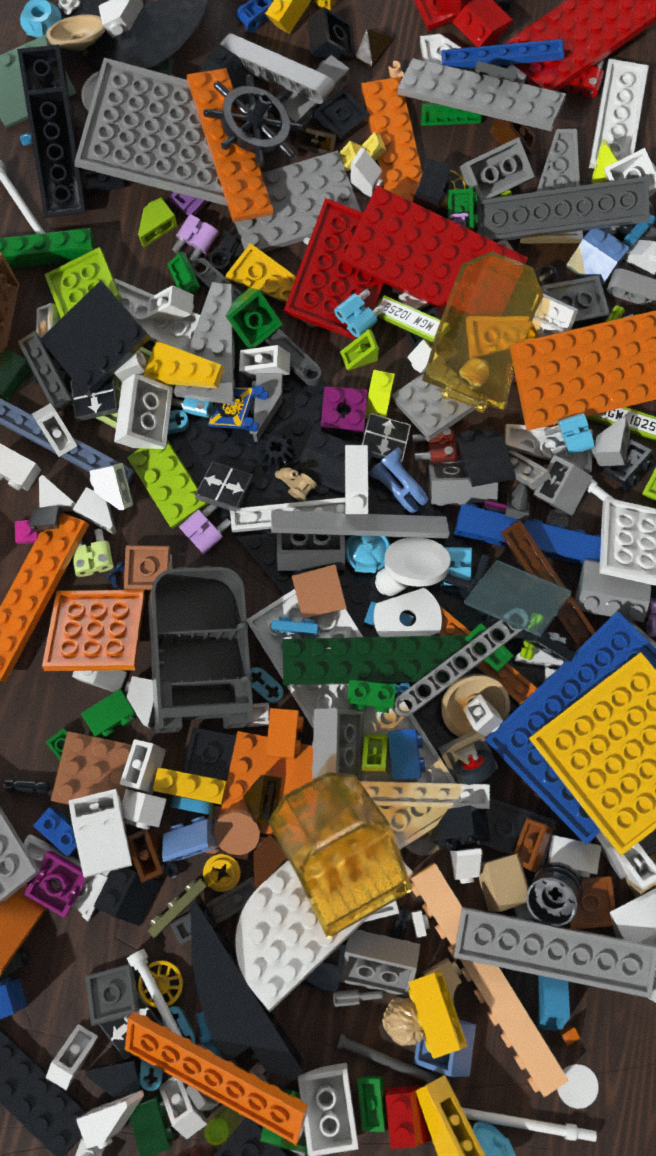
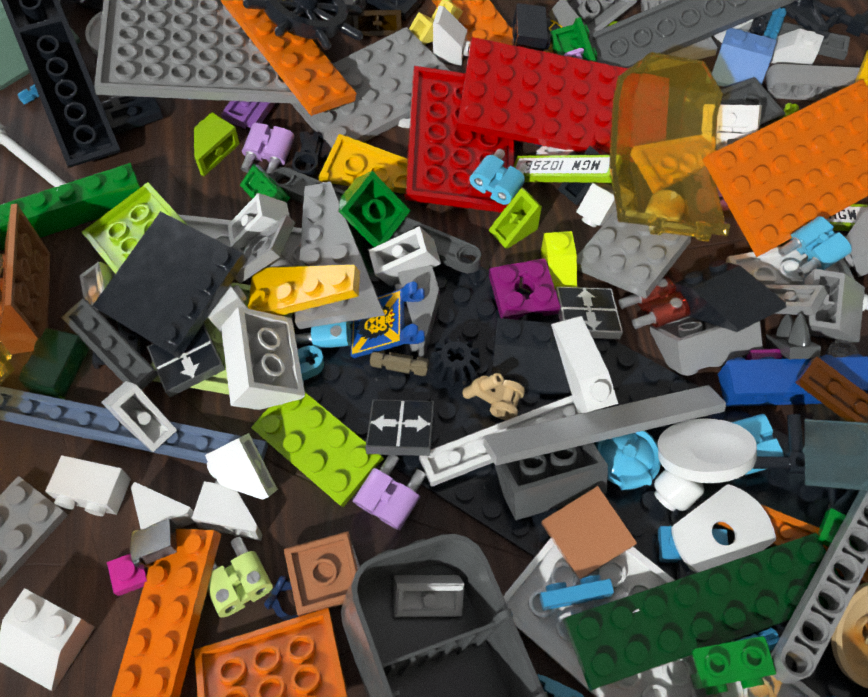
camera: 20 degrees left, 15 degrees down
(167, 331) = (267, 249): none -> light grey tile
(207, 600) = (428, 595): none -> white slope
(239, 440) = (399, 362): none -> dark tan axle
(411, 487) = (618, 333): medium blue piece -> none

